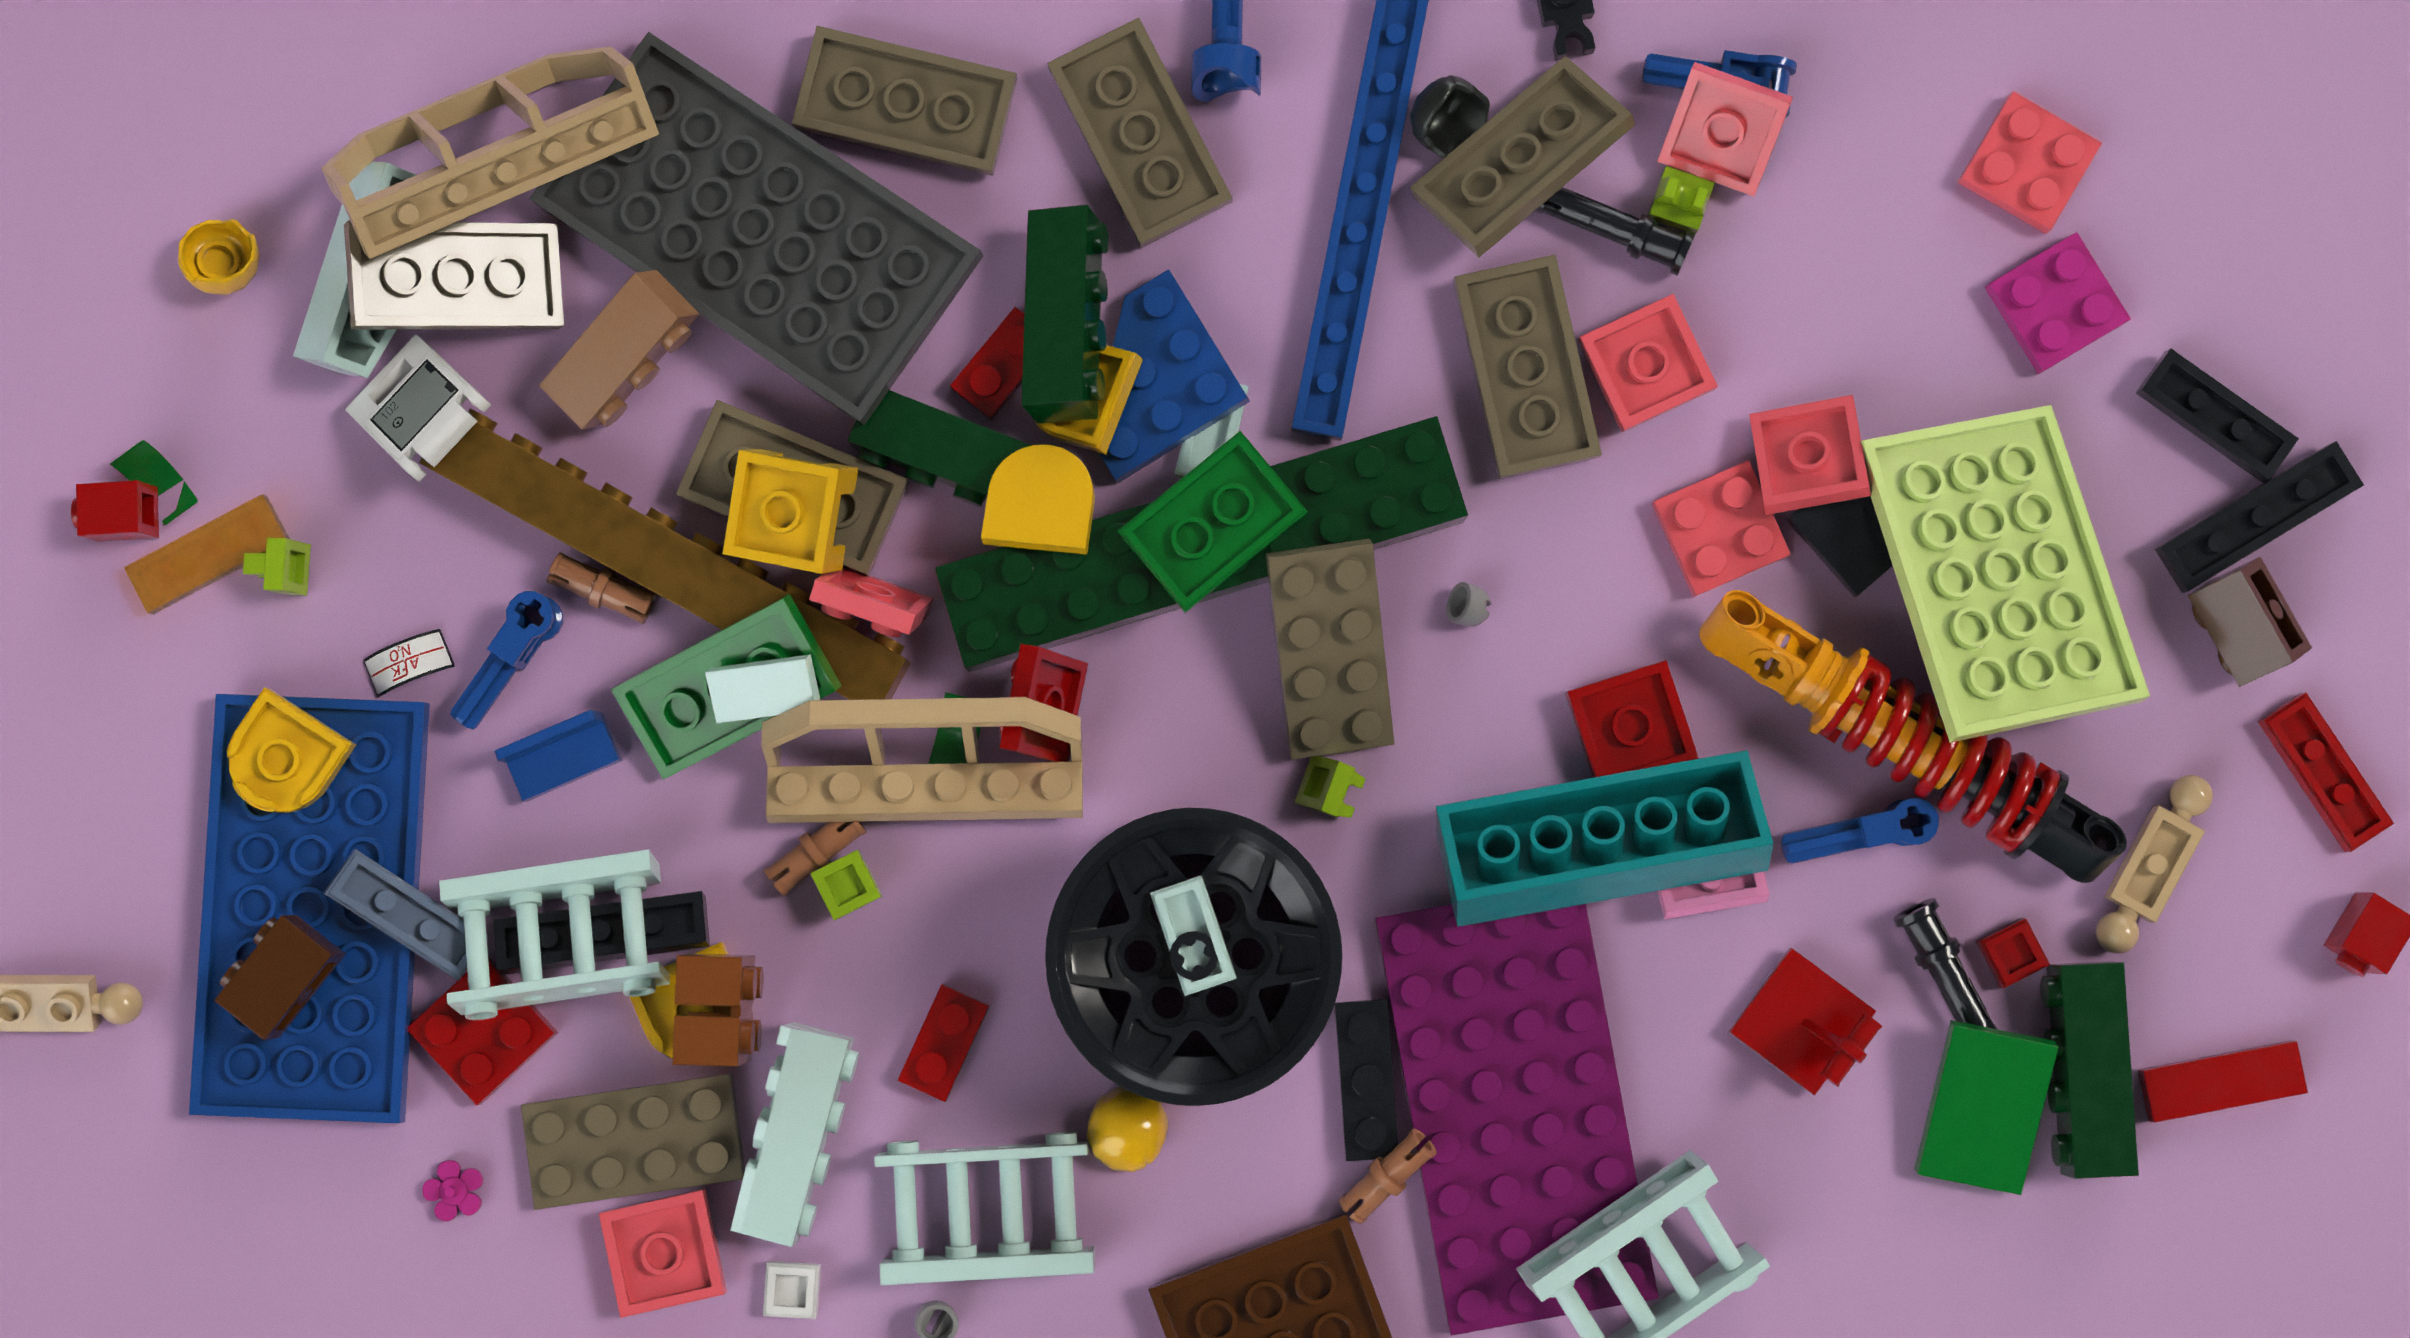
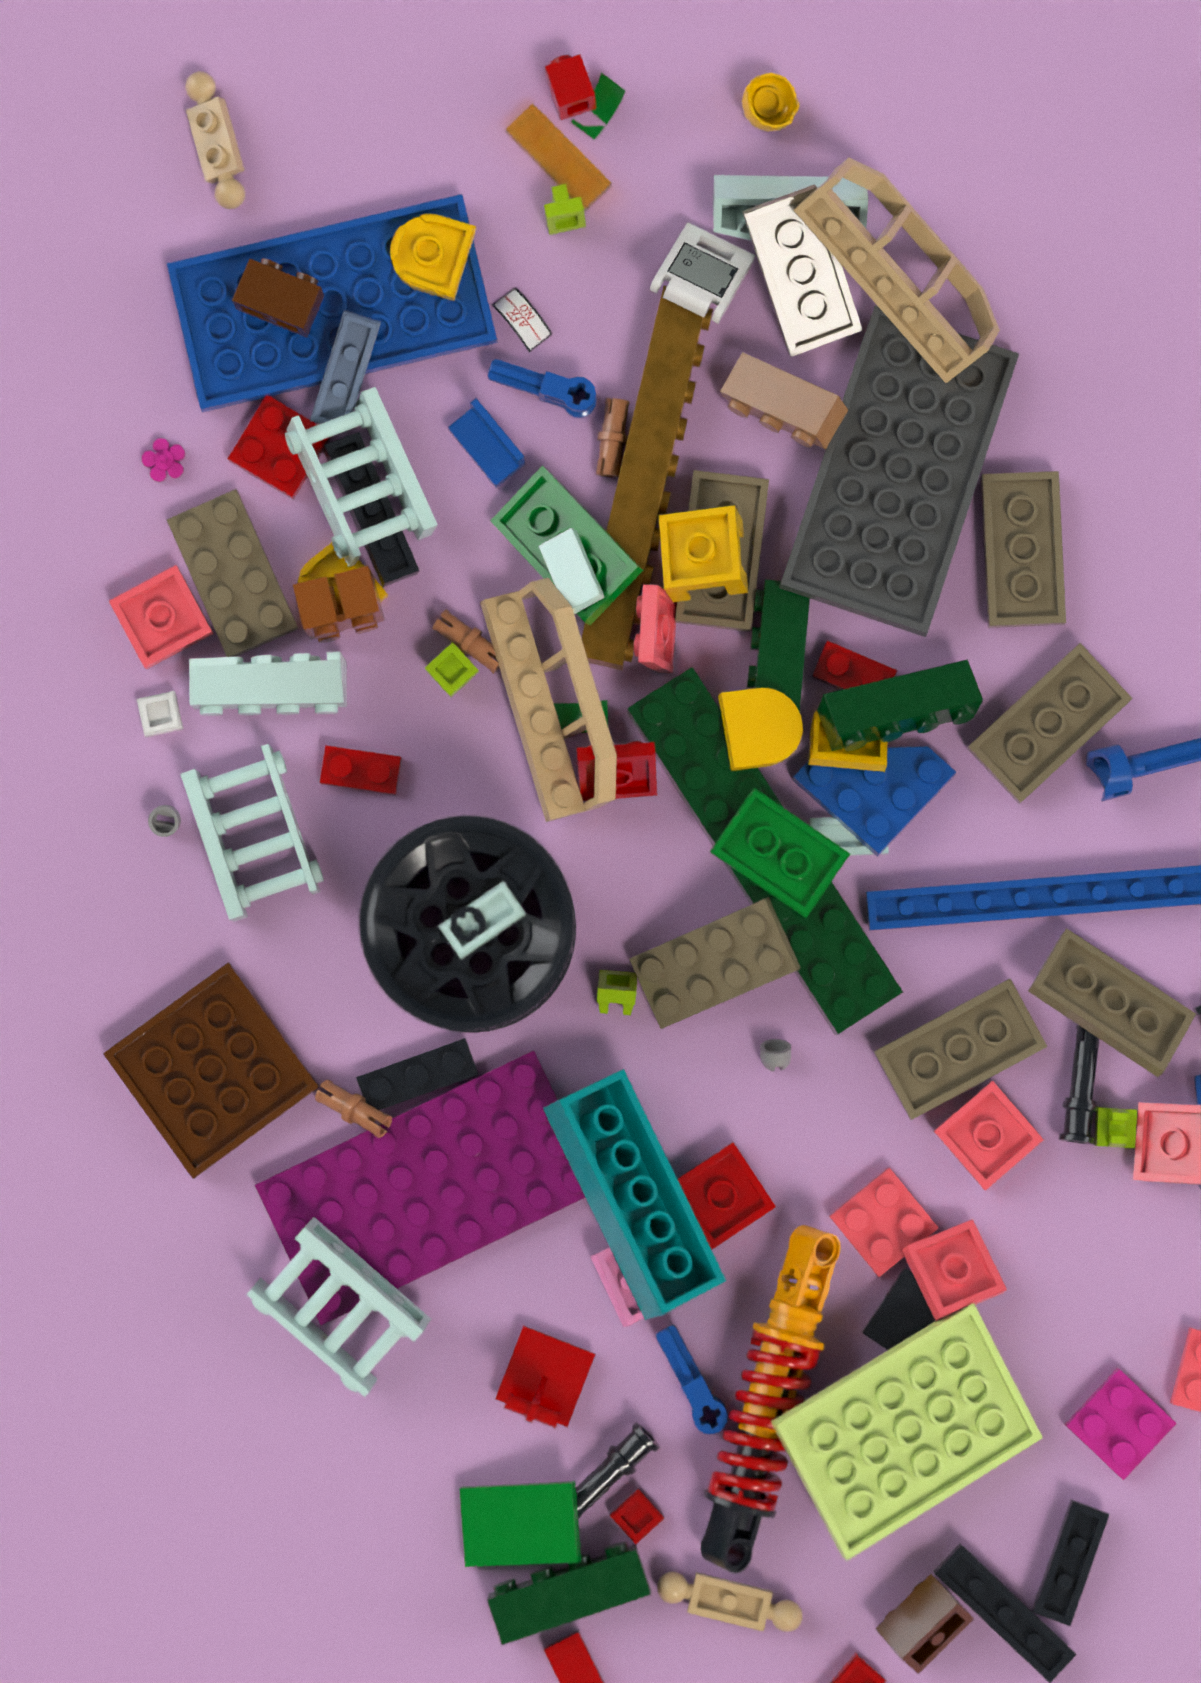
camera: 80 degrees right, 0 degrees up
(1126, 1130) = (334, 916): yellow hair -> none
(1448, 114) = (1127, 940): pearl dark grey hair -> none

